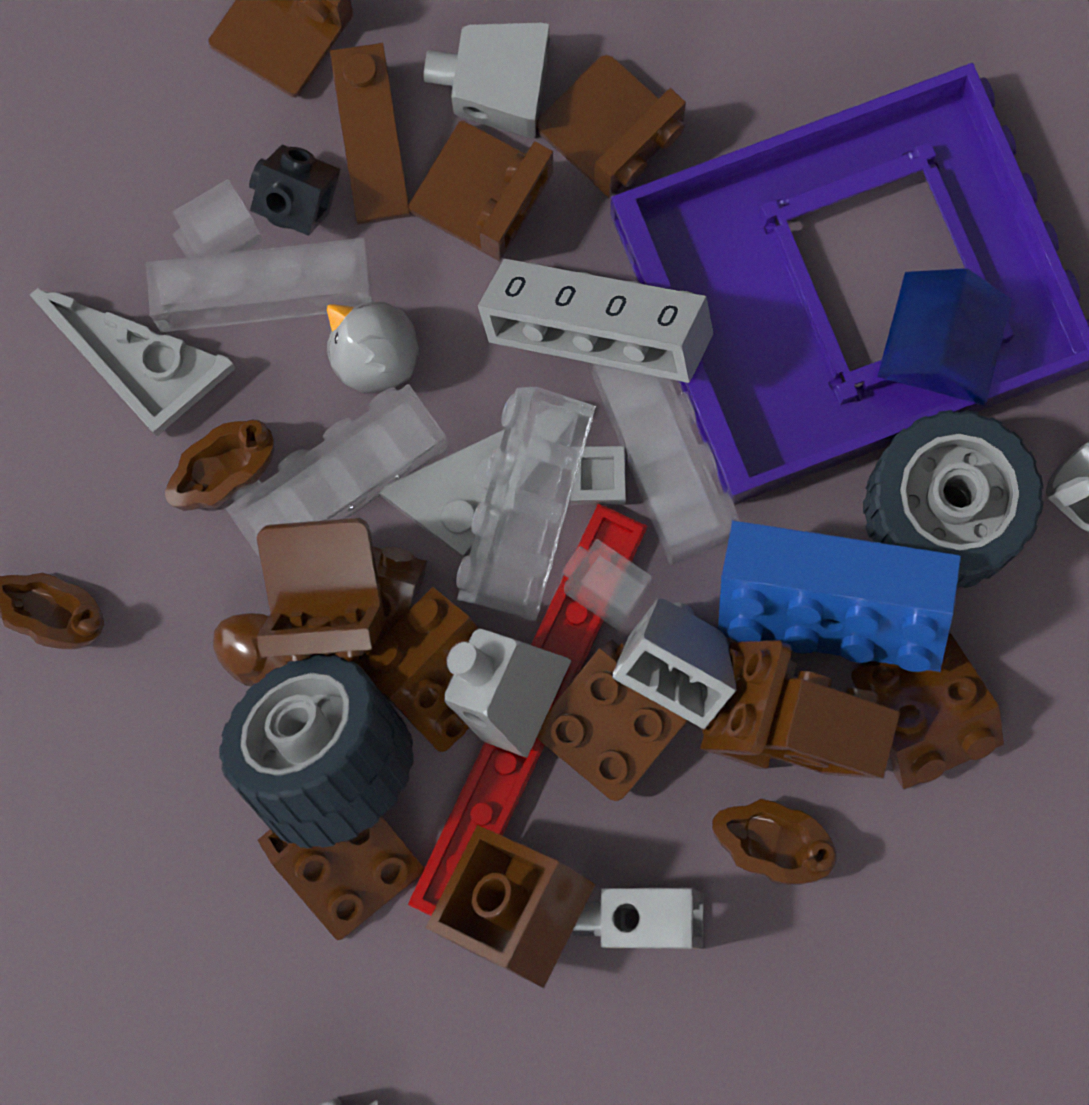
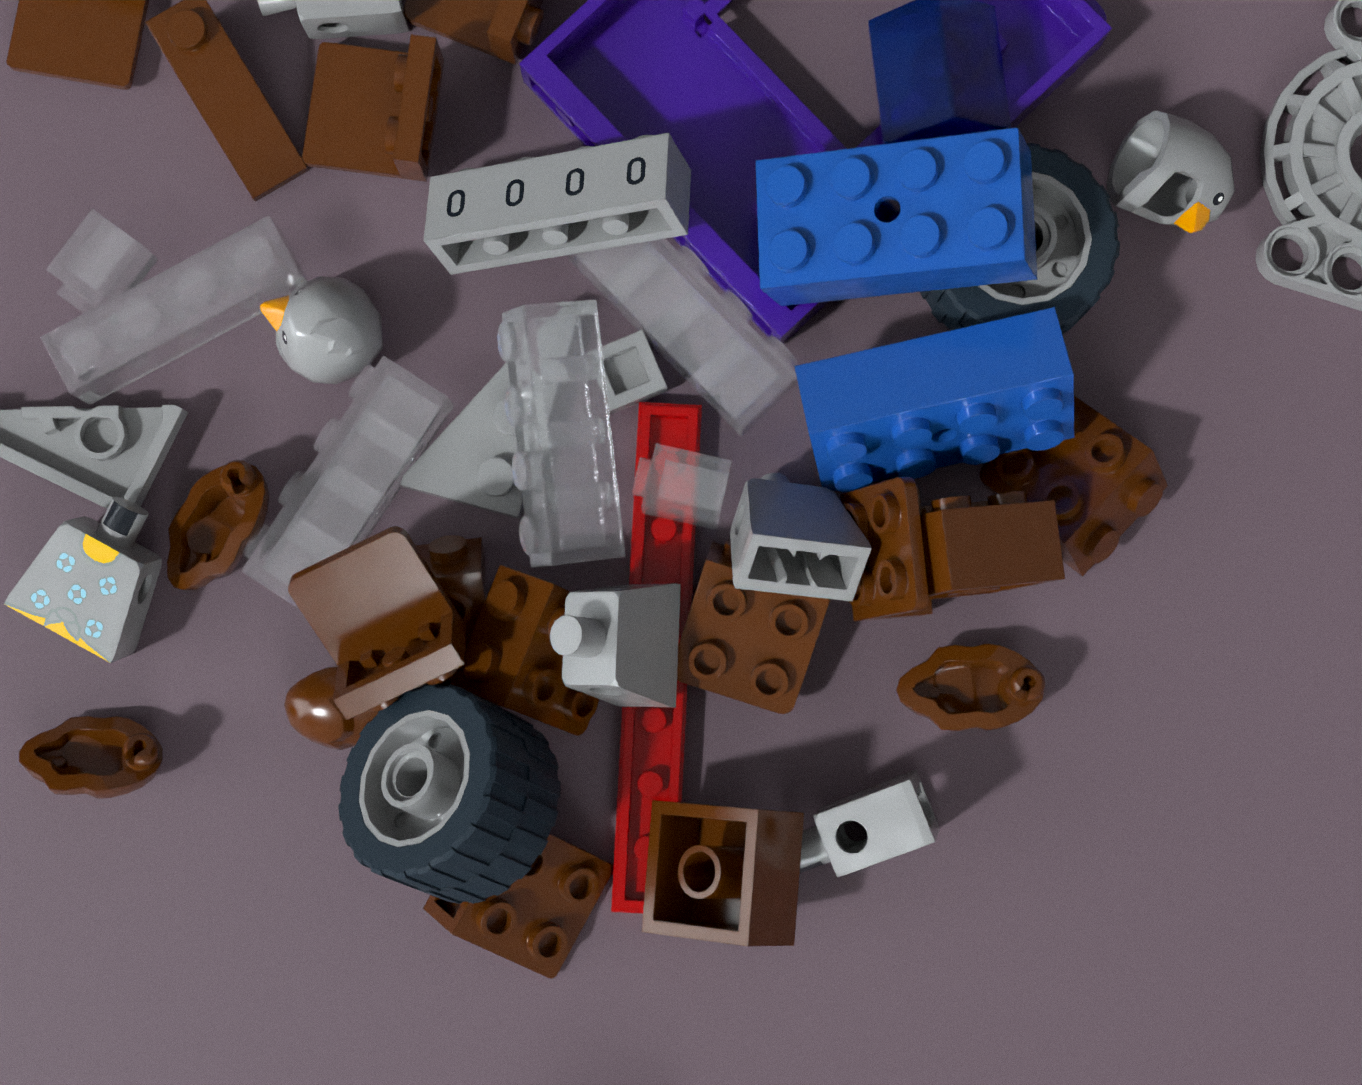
camera: 25 degrees left, 5 degrees up
(105, 471) = (93, 582): none -> light grey torso
(293, 189) = (169, 191): black brick -> none
(861, 435) = (958, 224): none -> blue brick

